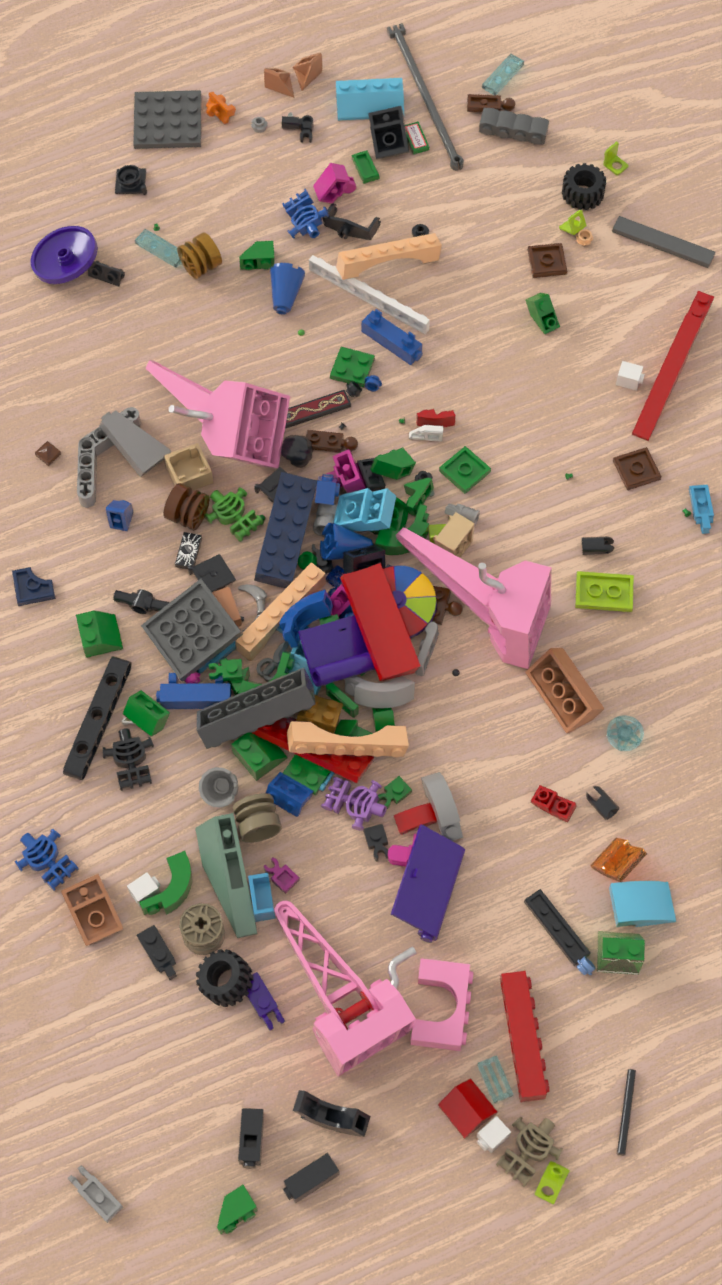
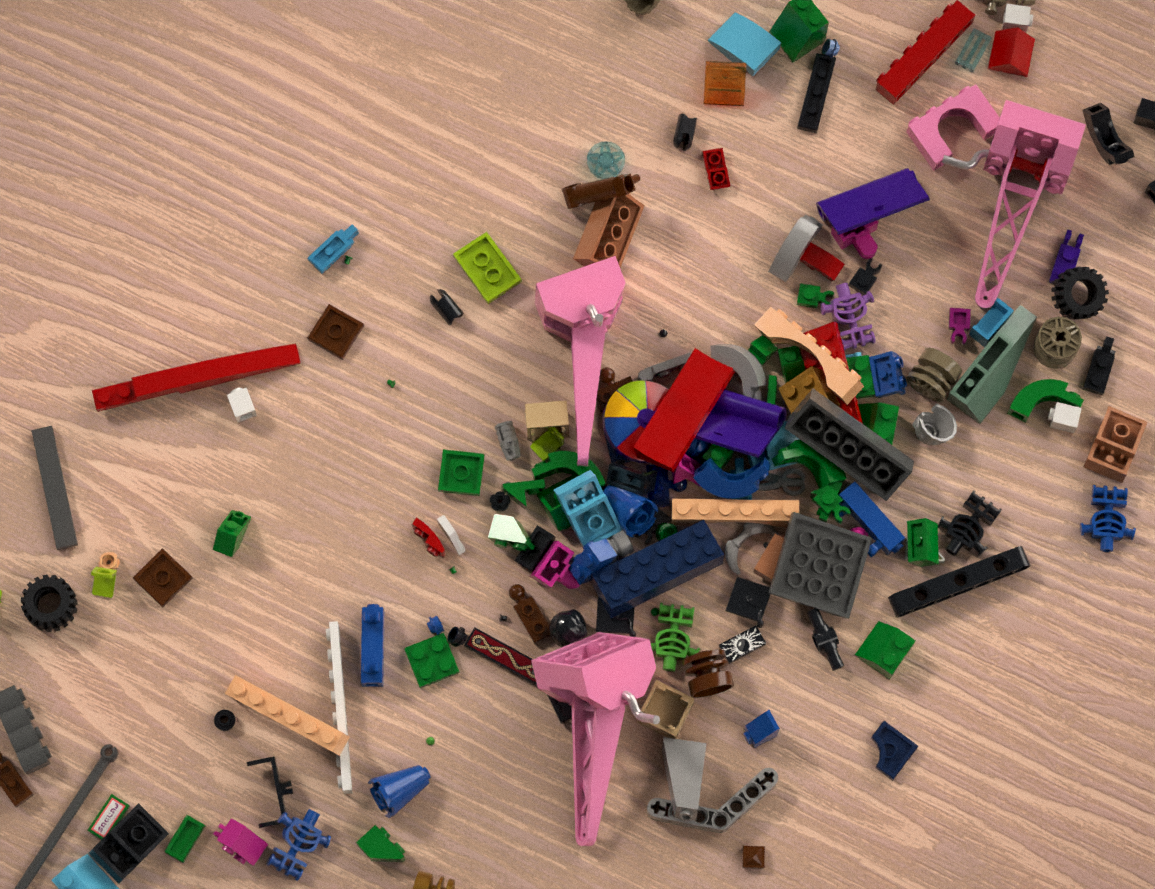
camera: 130 degrees left, 10 degrees up
(602, 692) = (580, 194): none -> reddish brown piece

